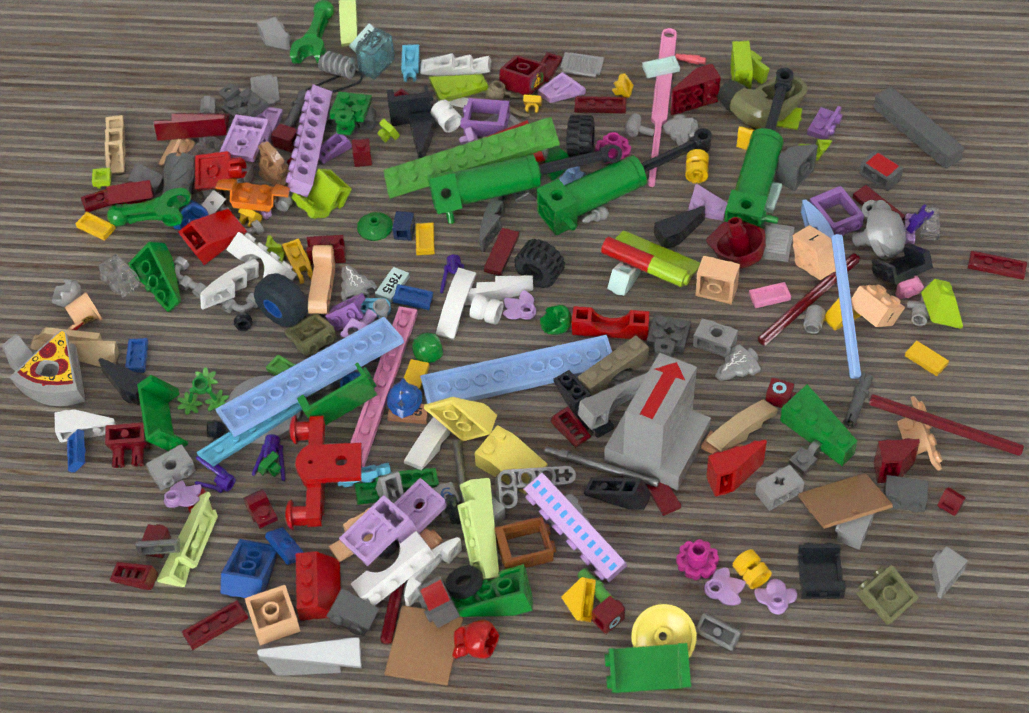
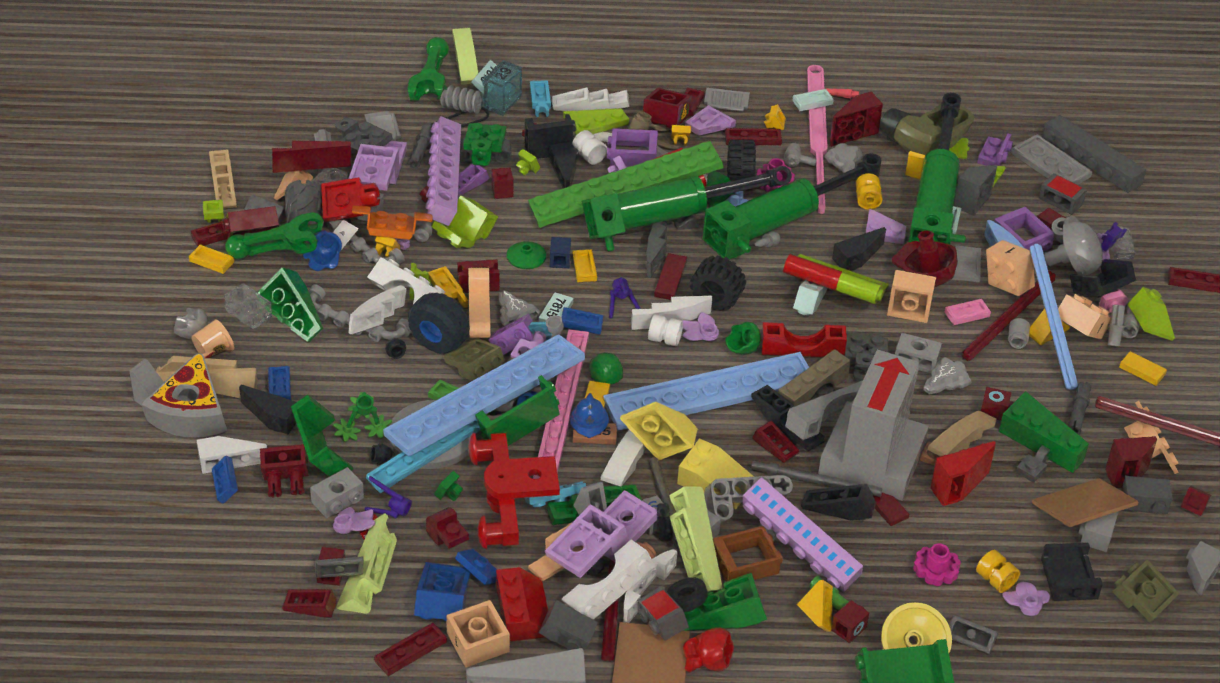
camera: 10 degrees left, 10 degrees down
(211, 234) = (347, 263): red slope -> none
(271, 443) = (446, 466): dark purple plant -> none
(272, 165) = (406, 193): medium nougat piece -> none
(274, 34) = (385, 71): light grey slope -> none
(284, 137) = (414, 170): dark red brick -> none
(455, 303) = (631, 325): white slope -> none
(727, 587) = (970, 592): lavender plate -> none
(741, 63) = (900, 92): lime window -> none
(760, 70) = (915, 101): lime slope -> none
(779, 487) = (1012, 493): light grey brick -> none
(876, 134) = (1049, 160): none -> light grey tile
(906, 315) = (1116, 325): none -> light grey axle

